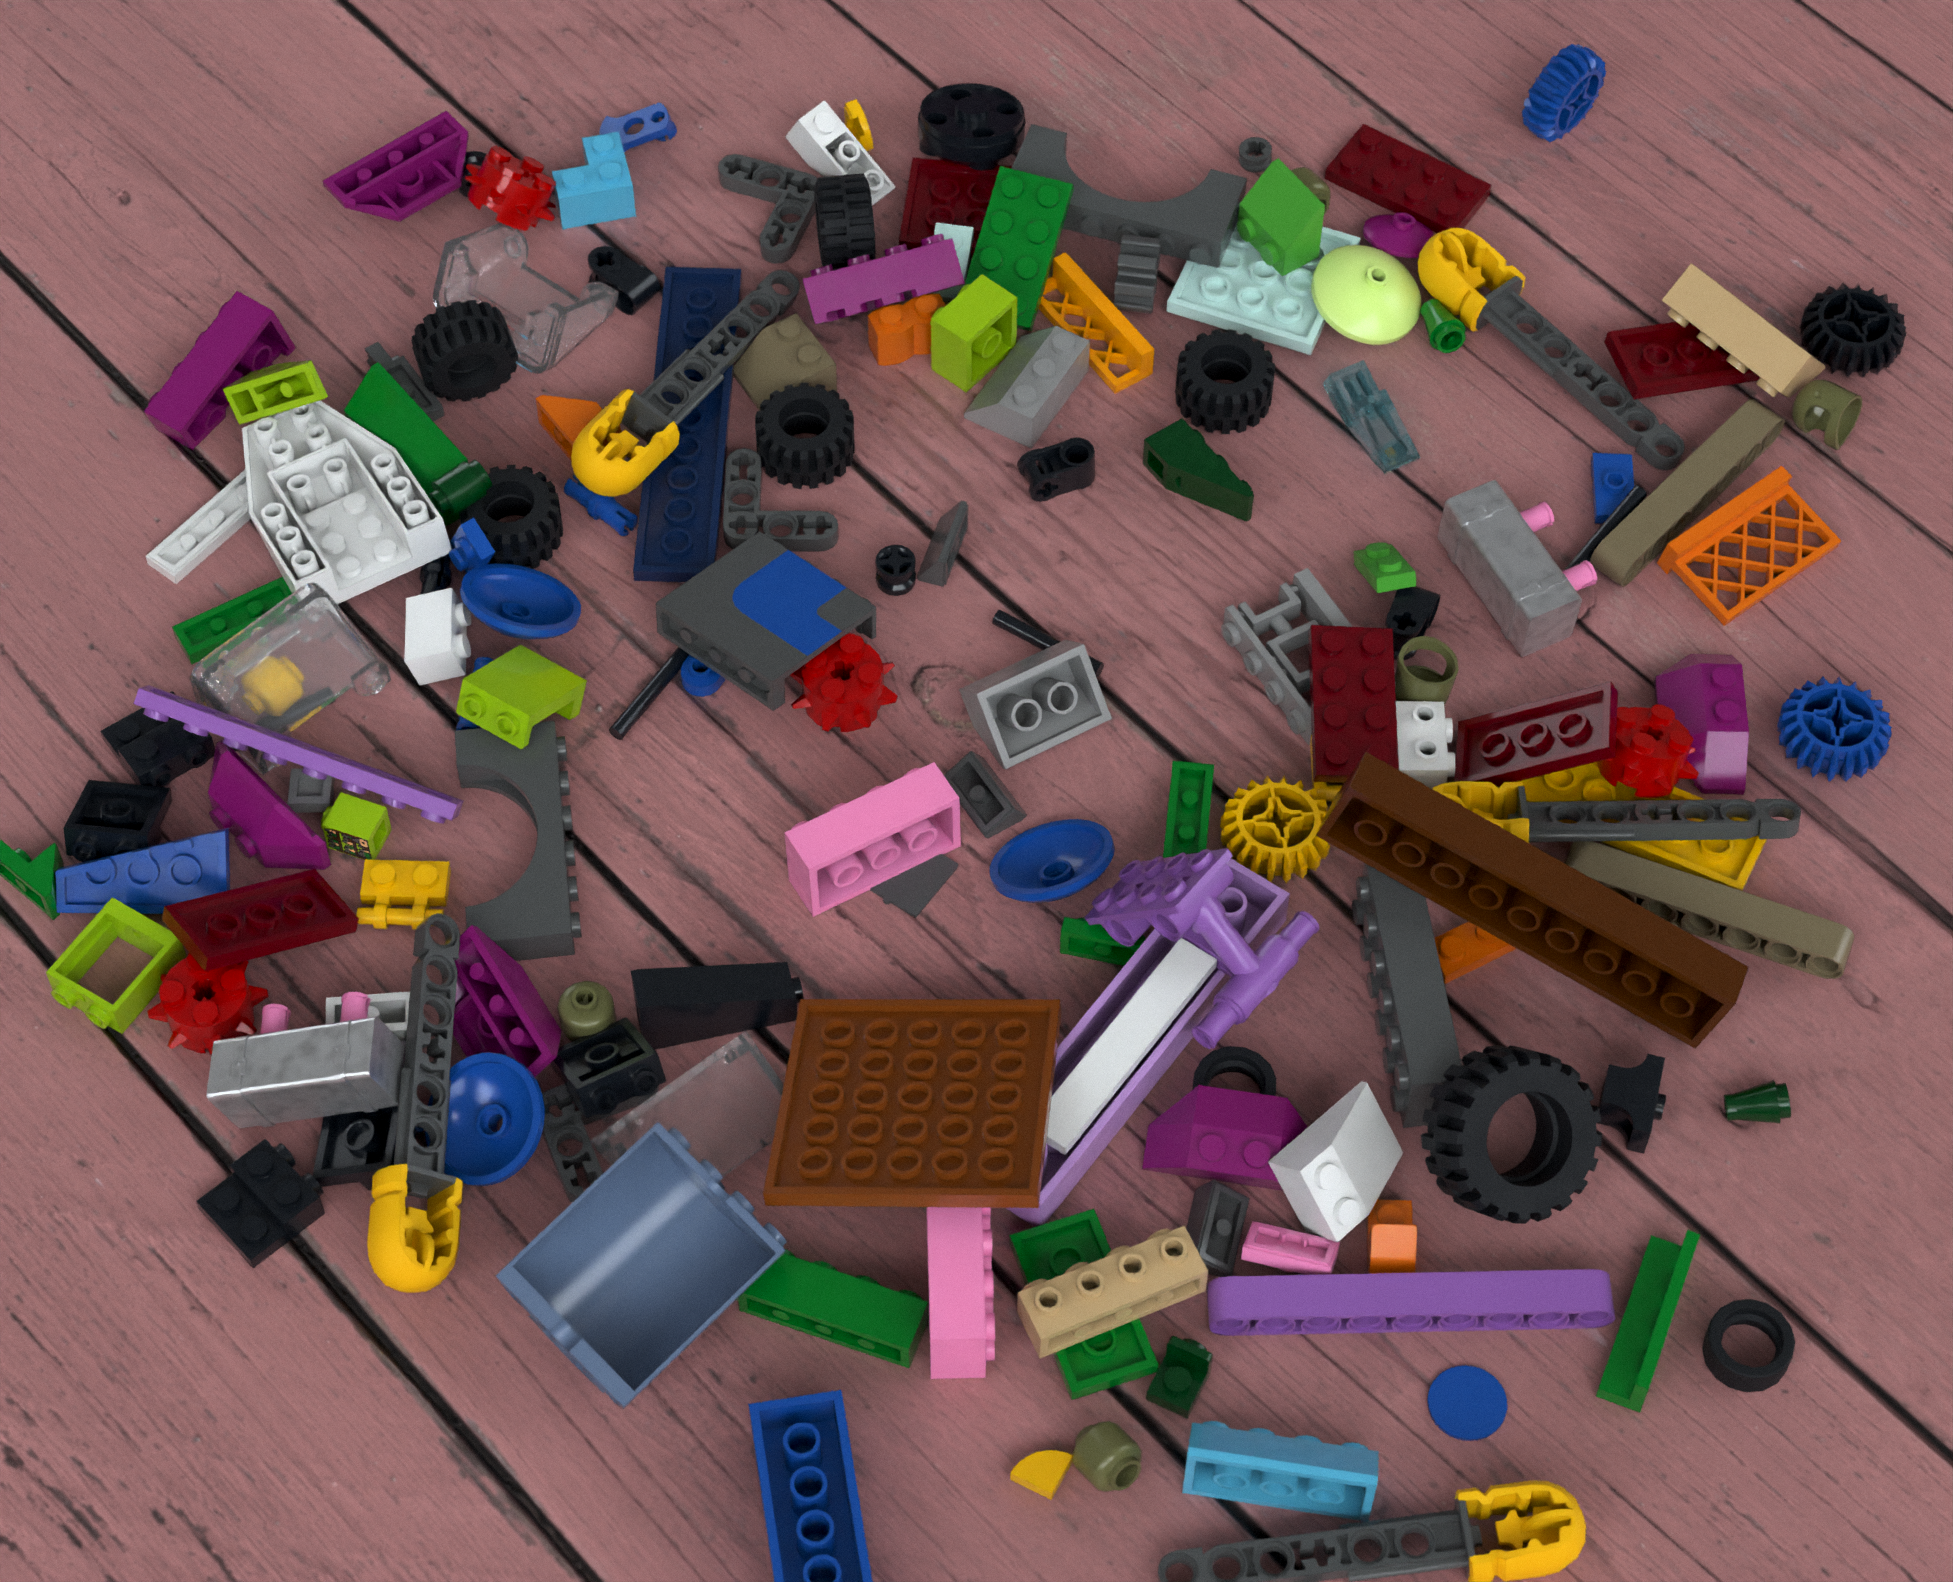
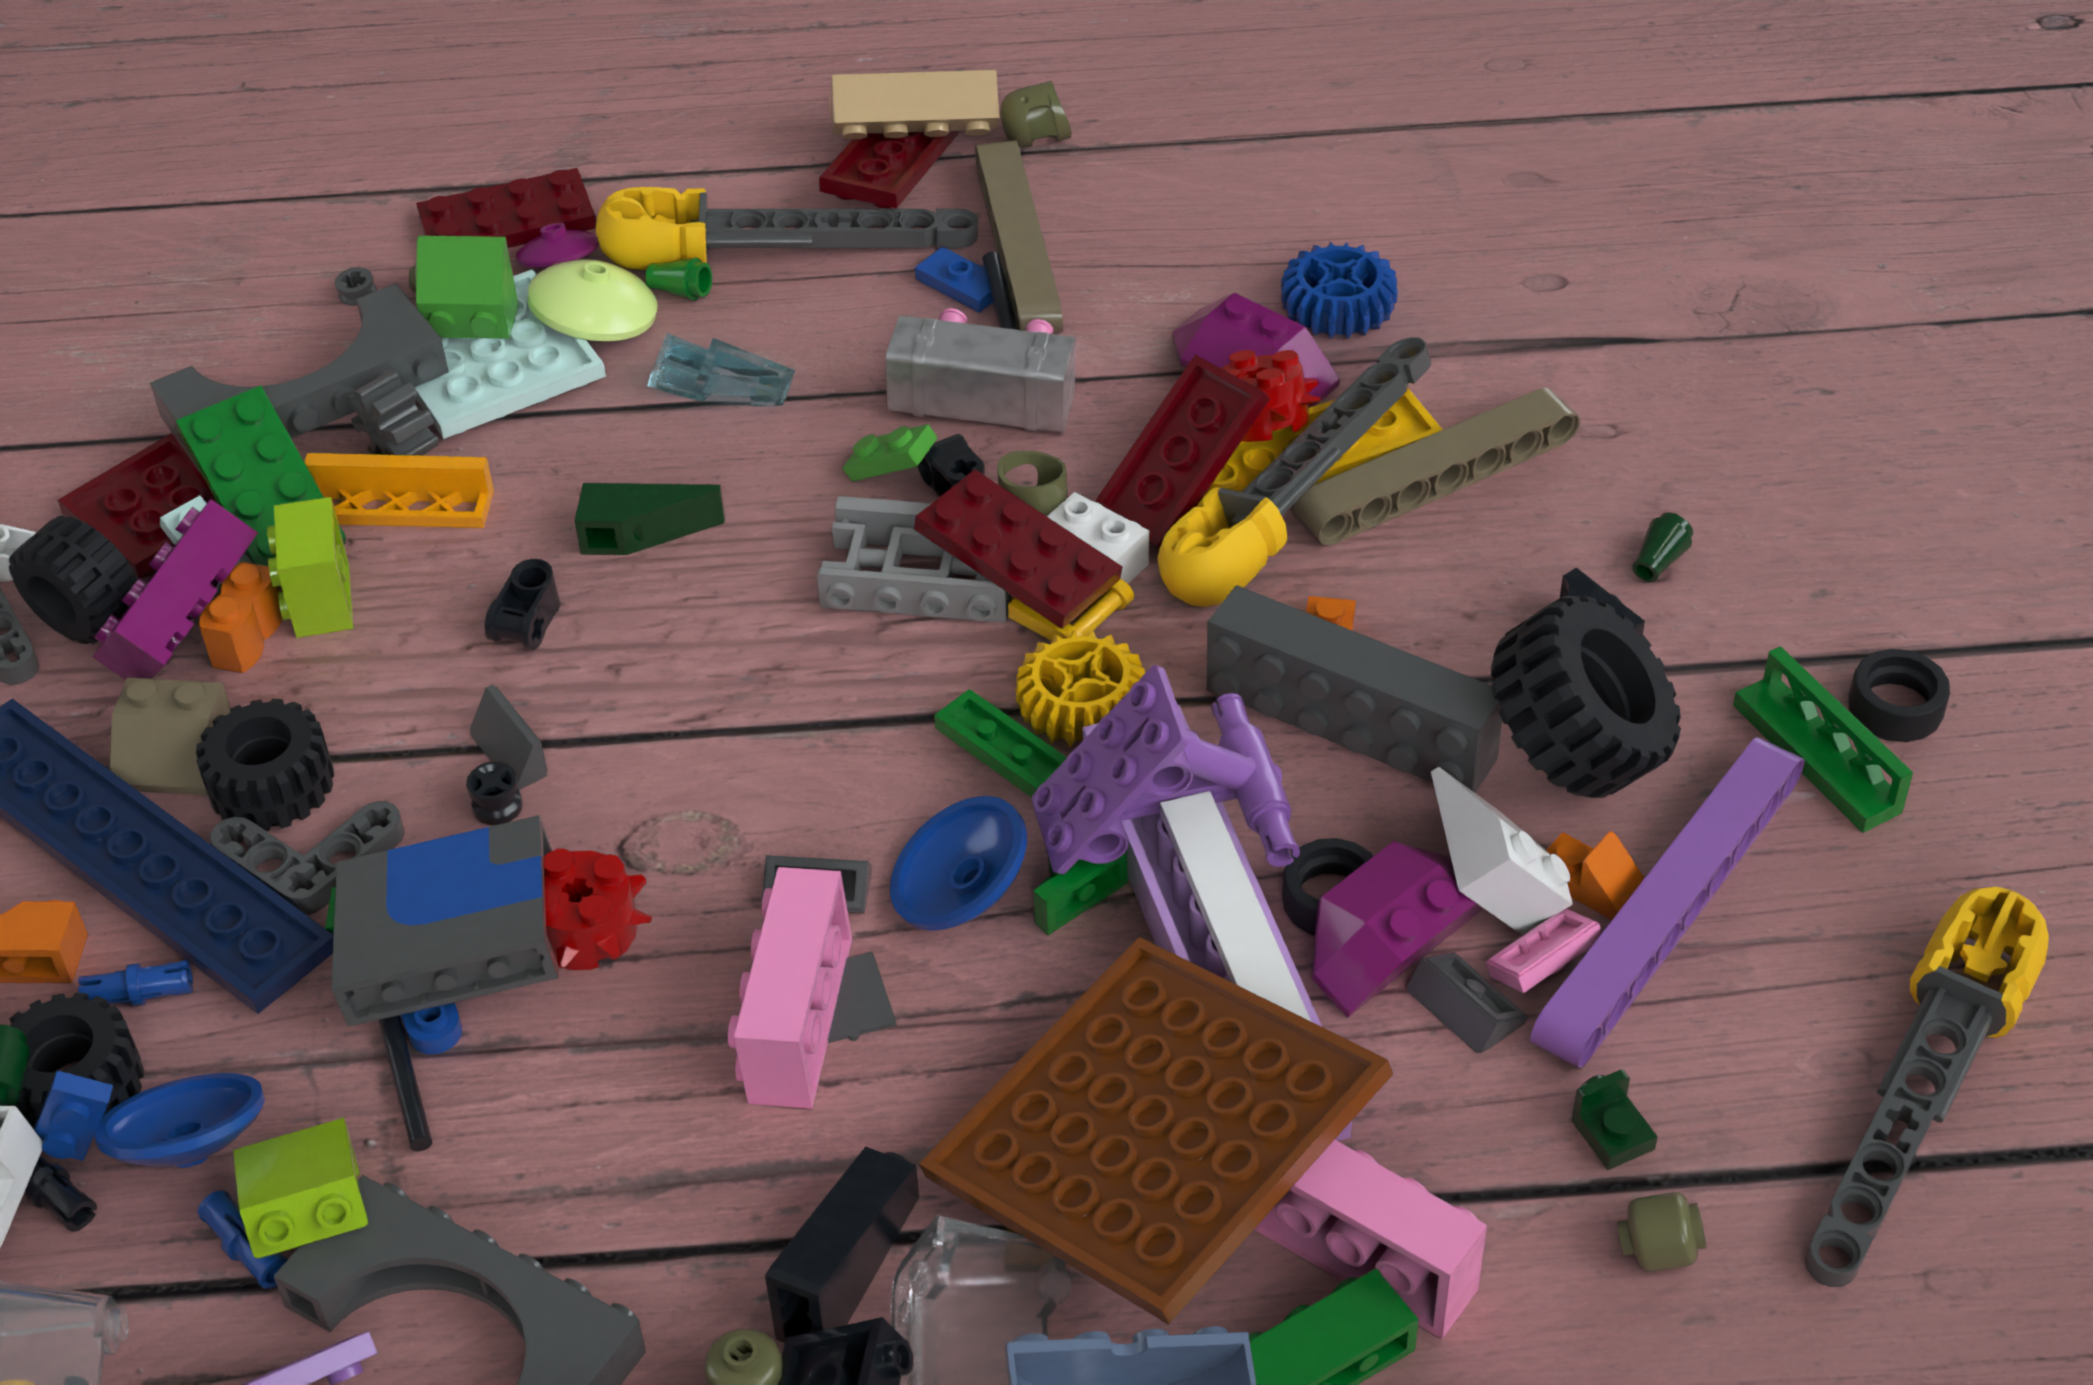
camera: 50 degrees left, 10 degrees down
(436, 636) = (131, 1223): white brick -> none
(654, 418) = (108, 865): piece -> none
(971, 125) = (83, 435): black piece -> none
(1031, 385) = (407, 571): light grey slope -> none
(1033, 635) = (700, 734): black bar -> none
(1036, 703) = (761, 776): light grey slope -> none
(1042, 1471) = (1632, 1303): yellow tile -> none
(1105, 1358) = (1475, 1149): green plate -> none
(1111, 1290) = (1491, 1105): tan brick -> none
(1224, 358) = (573, 436): black tyre -> none
(1281, 1471) = (1786, 1097): medium azure slope -> none
(1467, 1403) = (1802, 926): blue piece -> none
(1532, 901) = (1356, 535): reddish brown brick -> none
(1563, 92) = (552, 66): blue gear -> none
(1735, 516) = (1078, 233): orange fence -> none
(1853, 330) = (975, 47): black gear -> none

